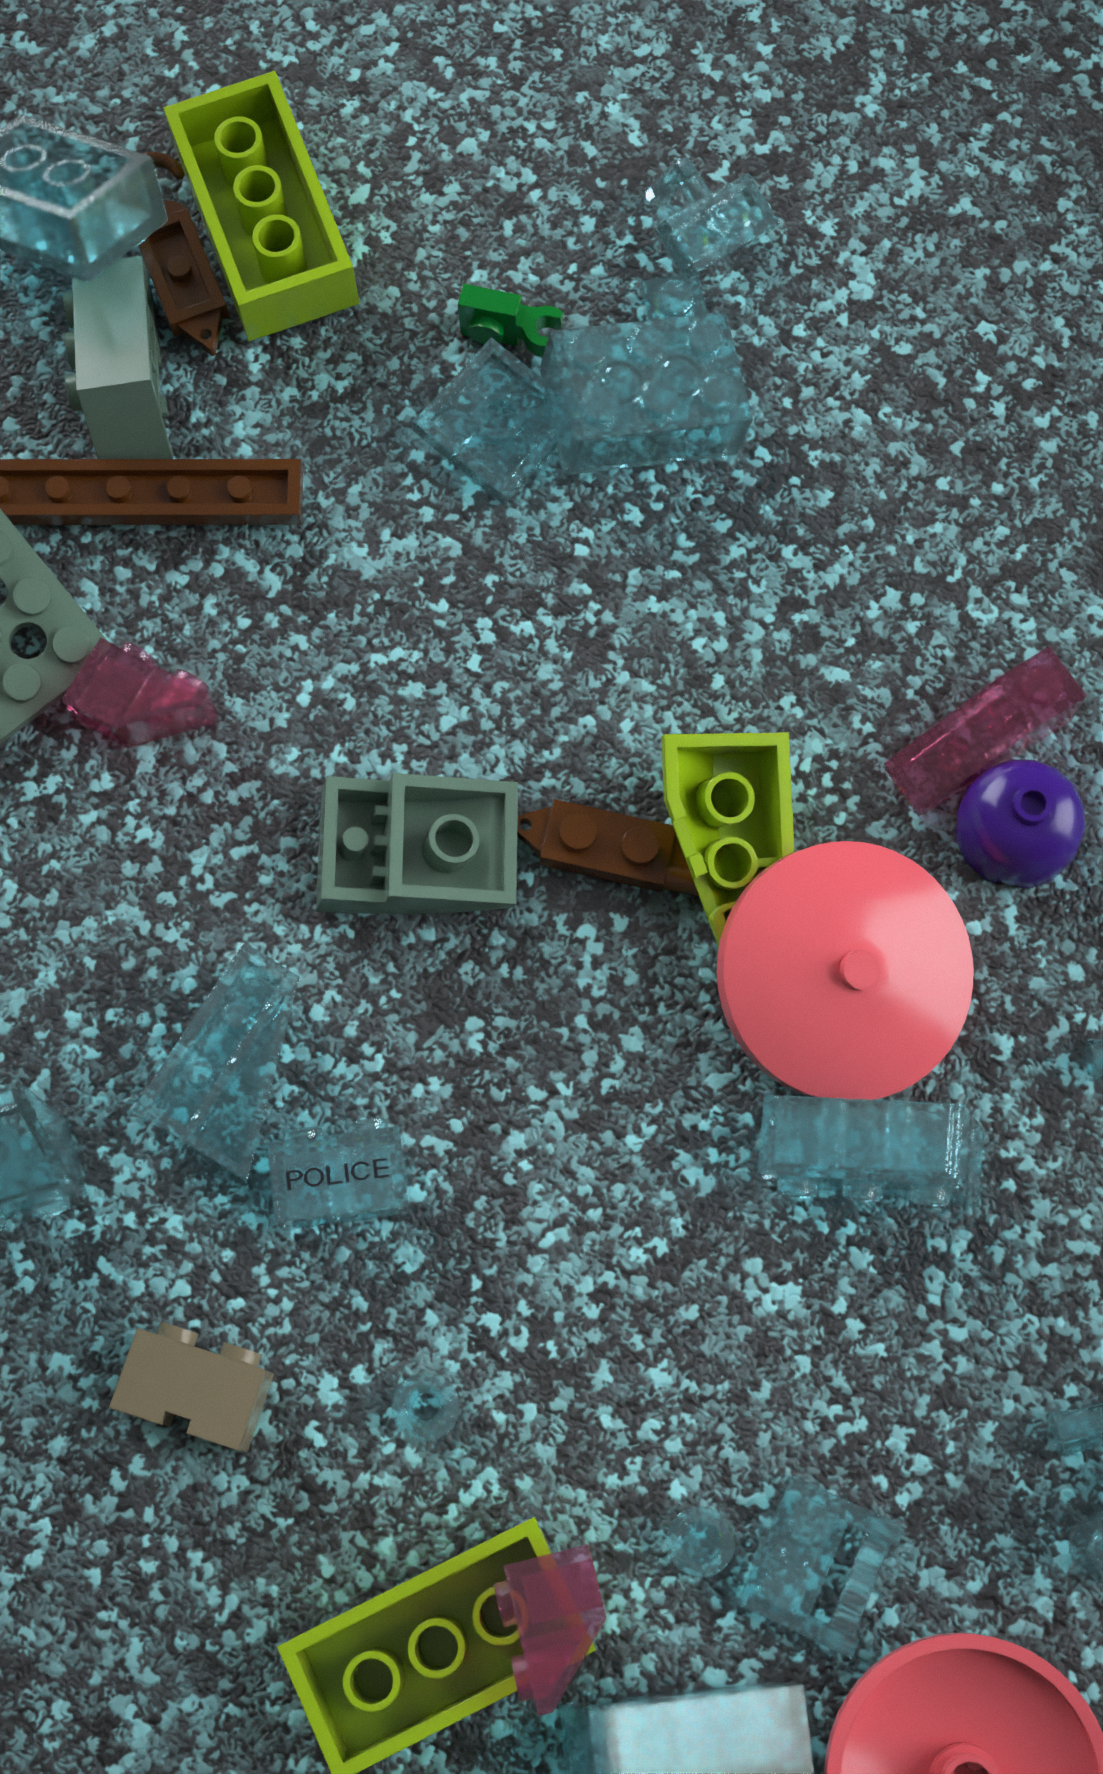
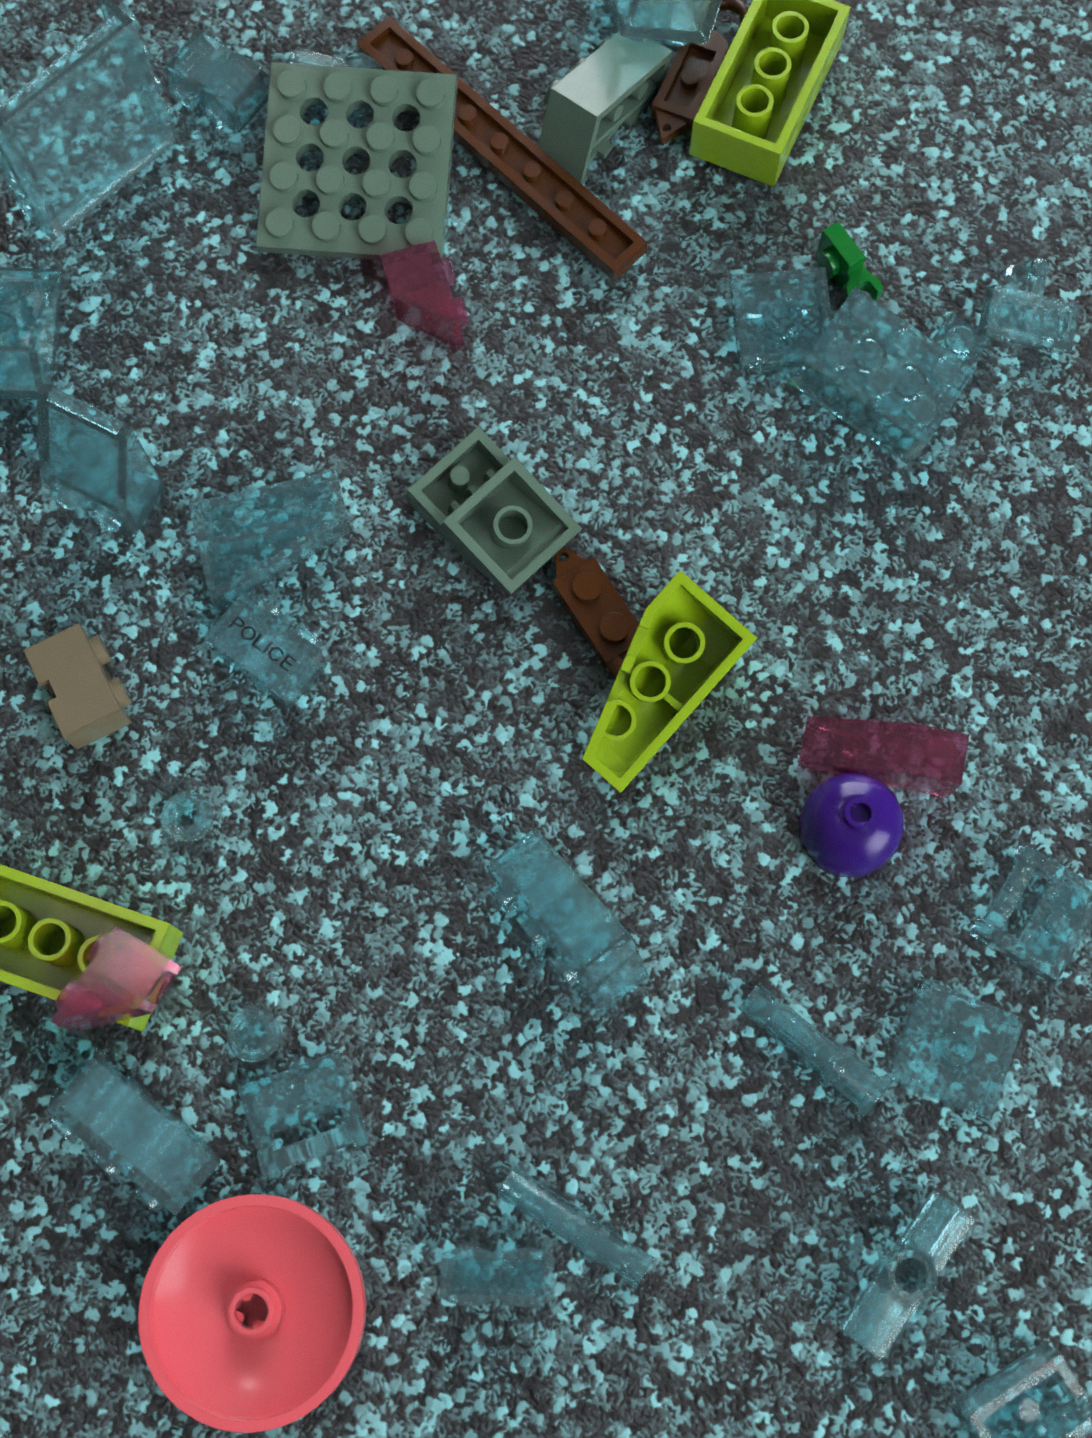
camera: 45 degrees right, 0 degrees up
(845, 971) = (656, 806): coral dish -> none

